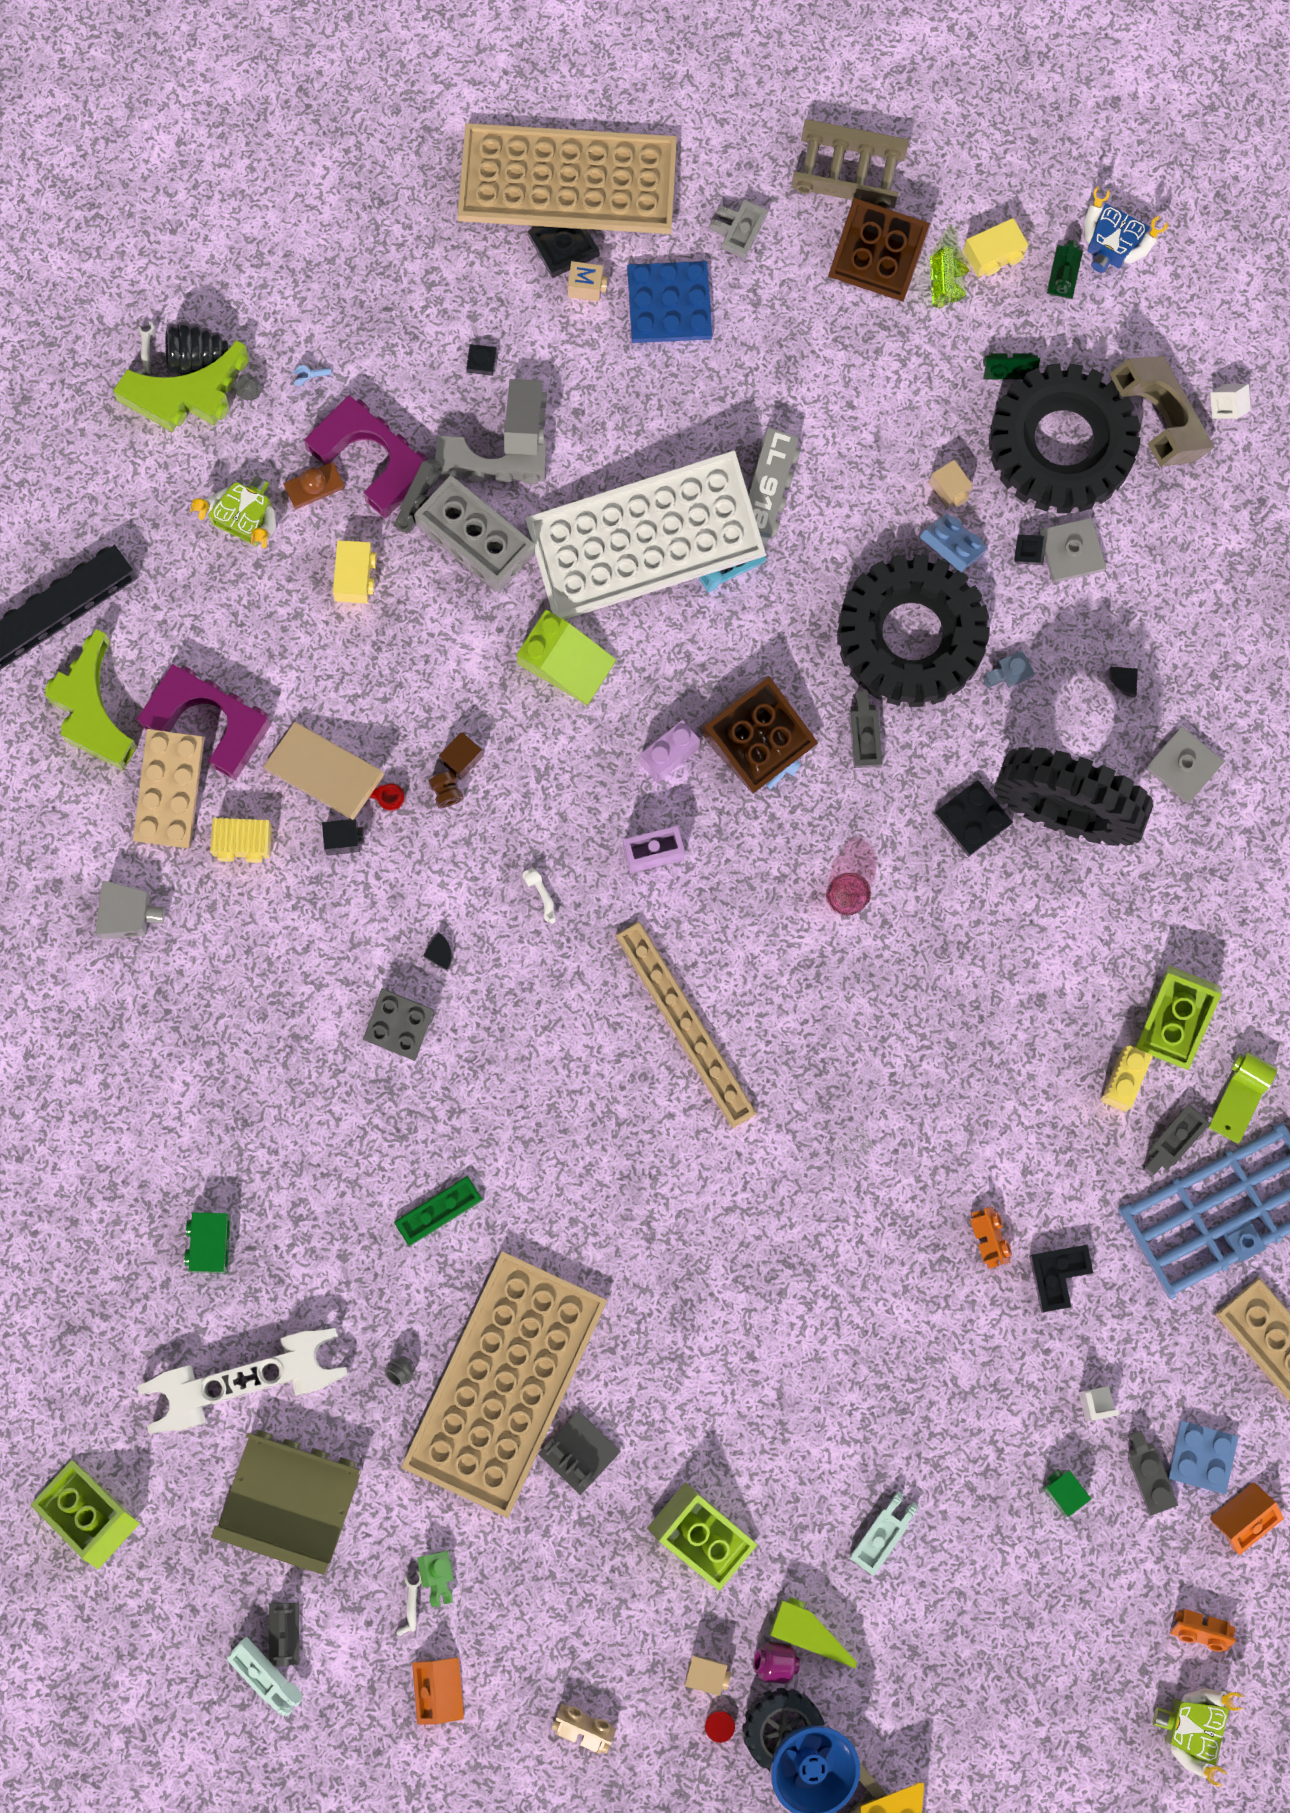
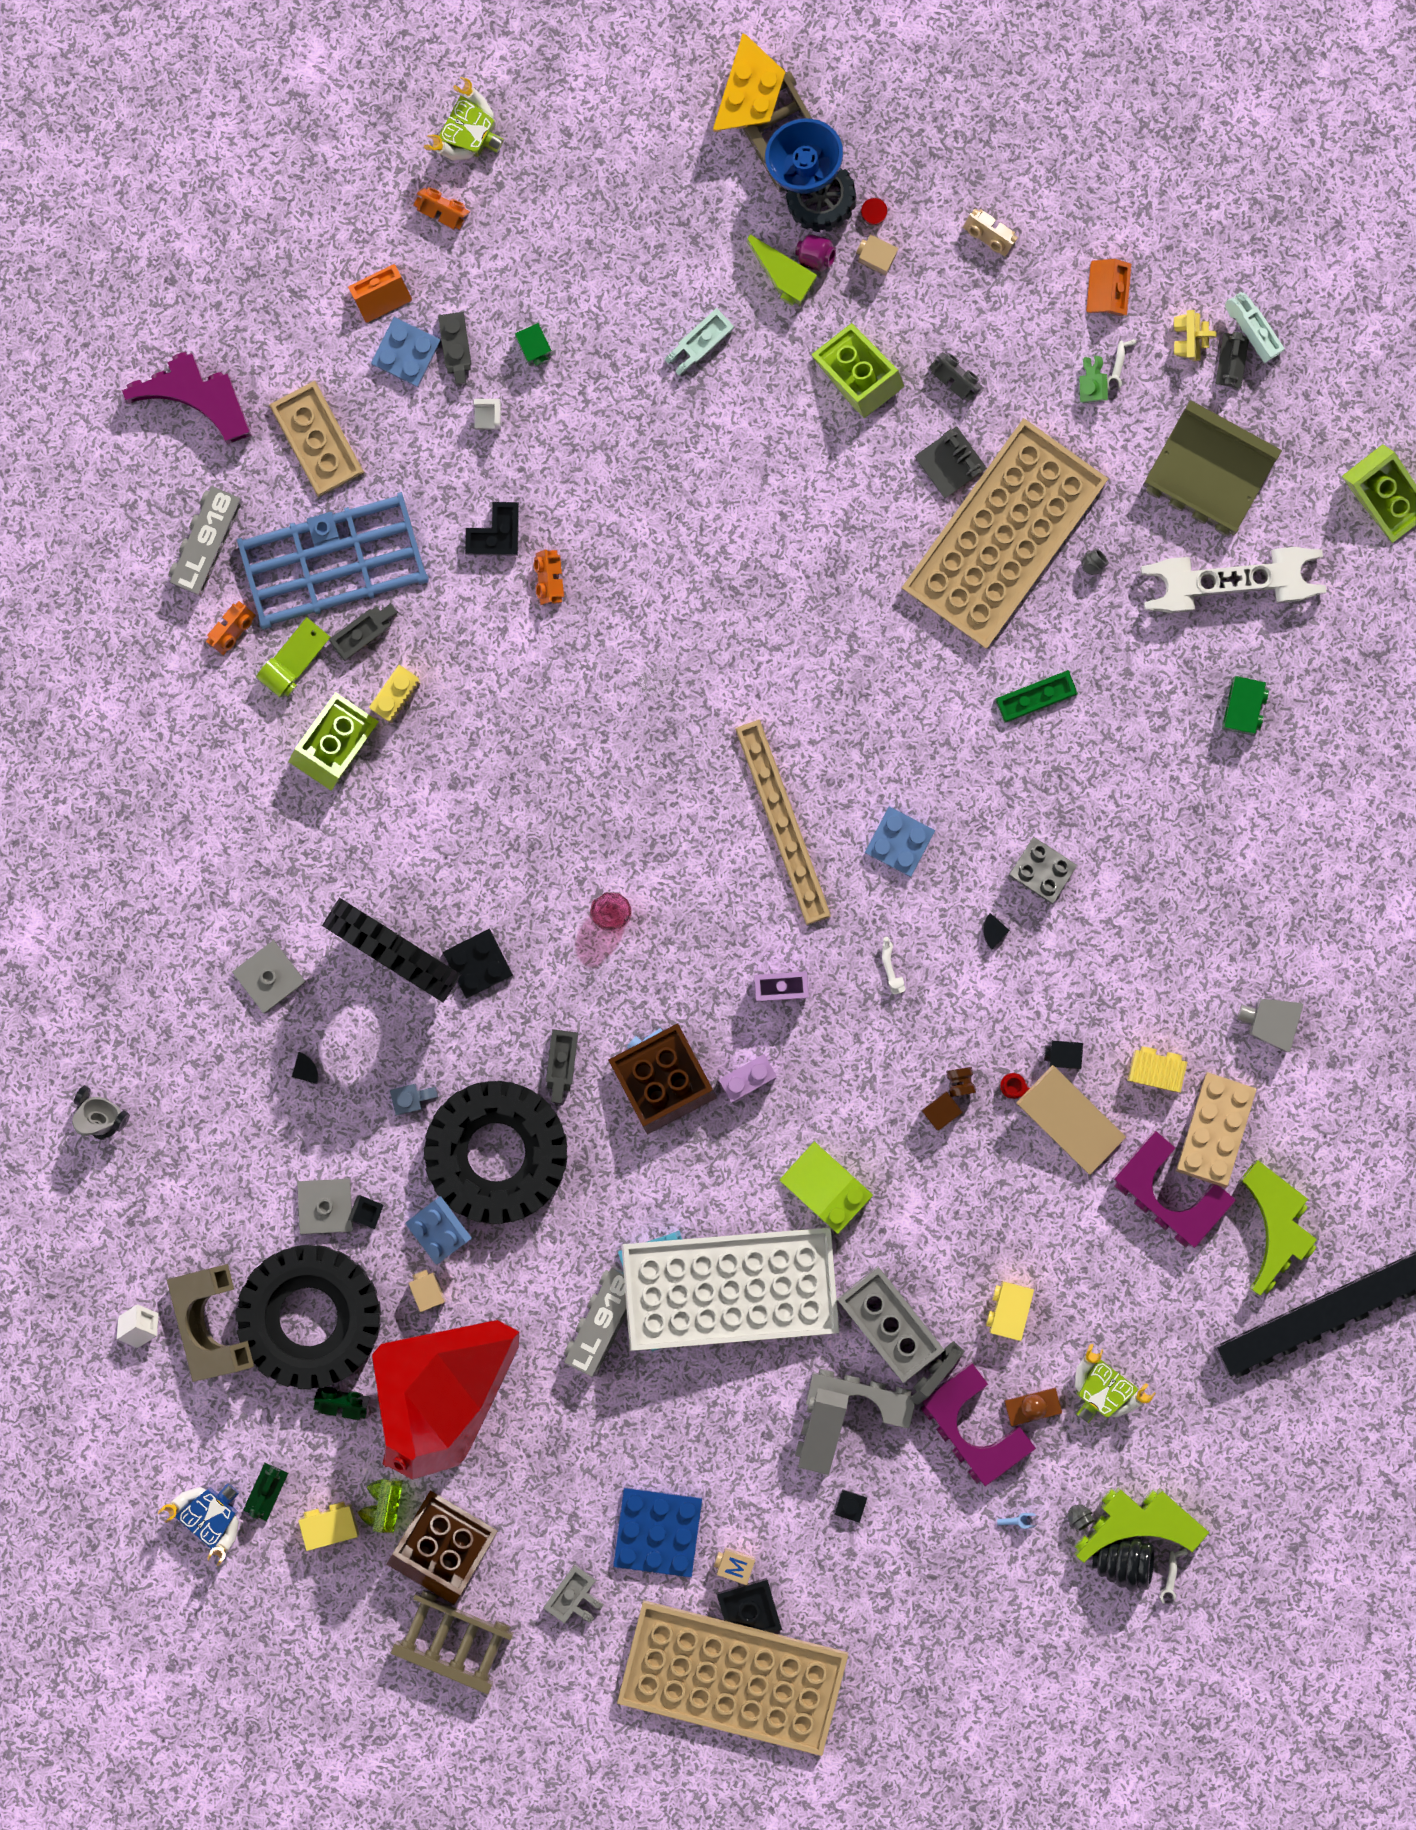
camera: 165 degrees left, 10 degrees up
(337, 1666) = (1197, 335): none -> light yellow hips
(557, 1027) = (899, 841): none -> medium blue plate
(603, 1560) = (964, 380): none -> dark grey hinge
(922, 374) = (439, 1393): none -> red panel

